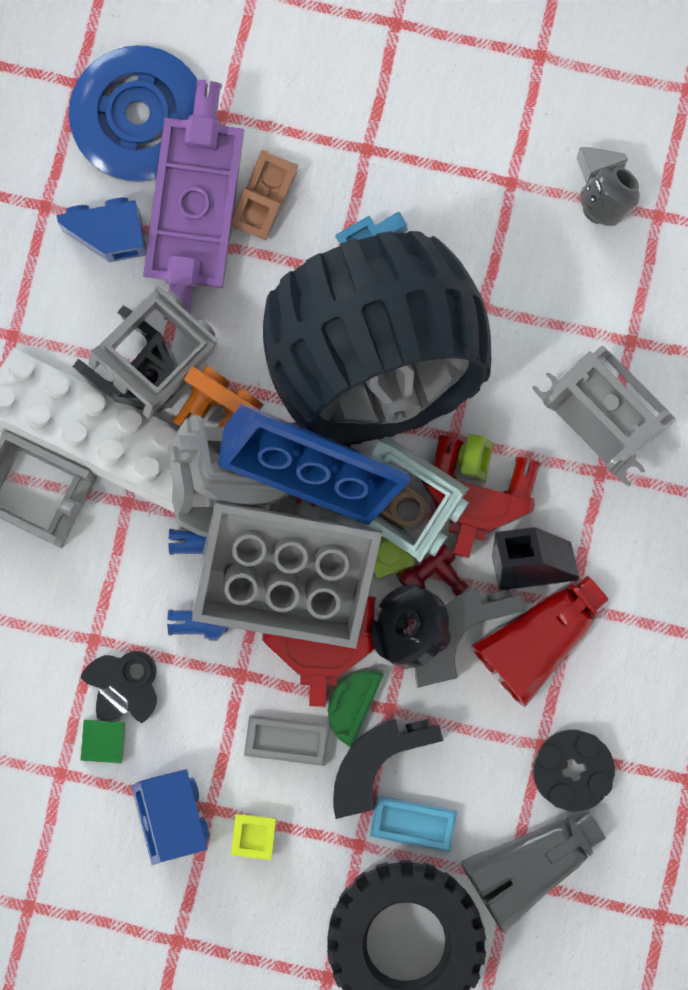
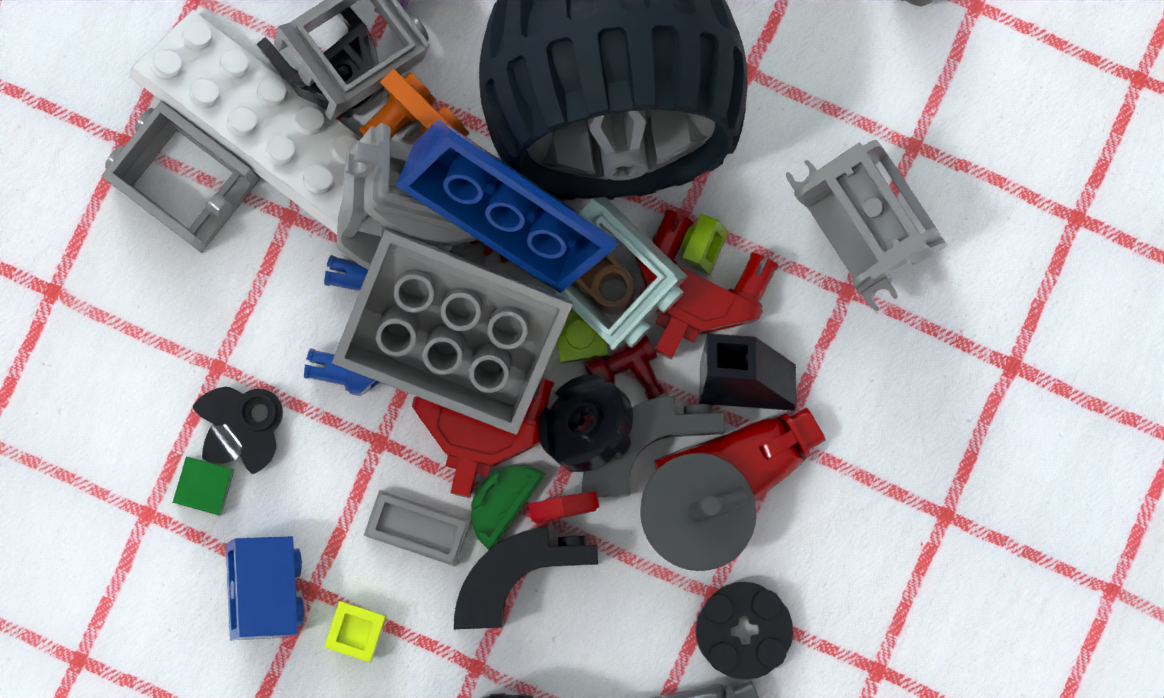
camera: 10 degrees right, 0 degrees up
(406, 699) = (563, 507): none -> red tile
(413, 823) = (544, 654): medium azure tile -> none
(517, 681) = (698, 512): none -> dark grey shield

